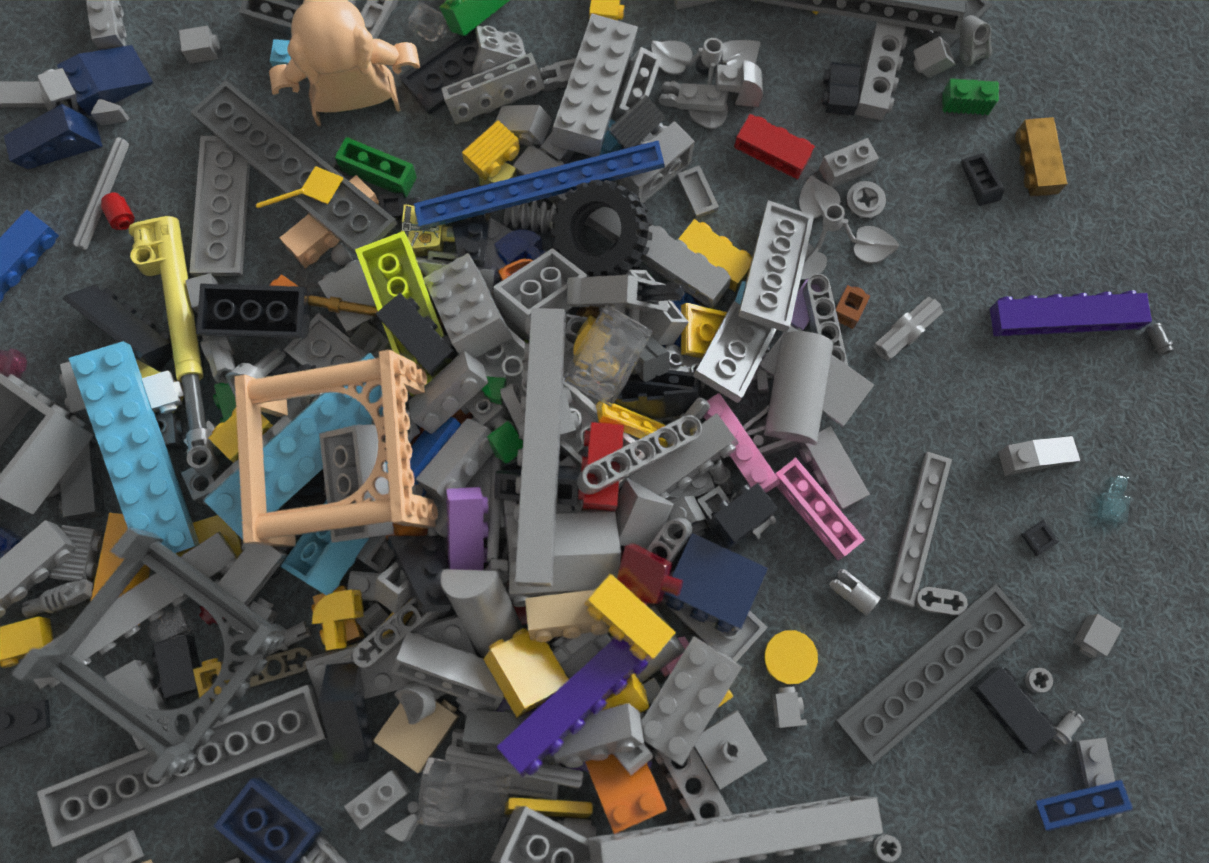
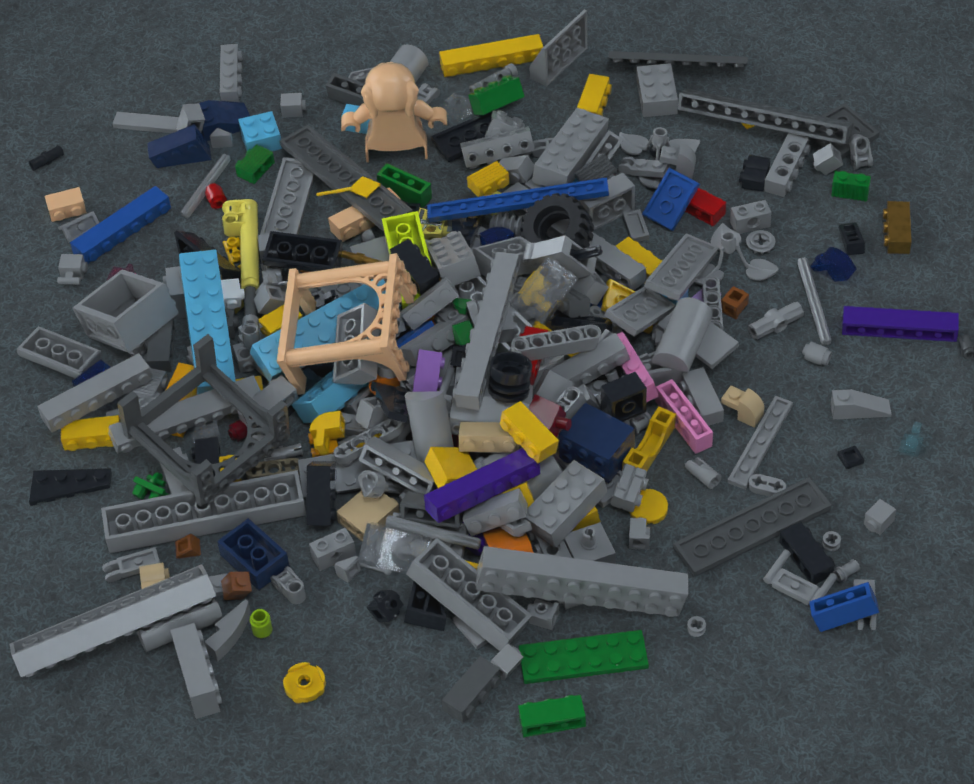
camera: 15 degrees right, 25 degrees down
(101, 726) = (142, 486): none -> green hips
(152, 290) = (233, 243): none -> yellow piece
(161, 99) = (260, 130): none -> medium azure brick
(162, 150) = (254, 164): none -> green brick
(176, 816) = (188, 546): none -> dark orange slope
(216, 397) = (268, 297): none -> light grey brick
(587, 526) = (510, 377): none -> black wheel
(741, 149) = (671, 199): none -> blue tile
(767, 644) = (629, 488): none -> light grey brick
(778, 559) = (656, 435): none -> yellow arch
(896, 479) = (748, 404): none -> tan brick
(951, 289) = (814, 301): none -> light grey axle
(971, 377) = (817, 353): none -> light grey brick
(973, 227) = (836, 263): none -> clear blue brick
(1006, 763) = (794, 585): none -> light grey plate

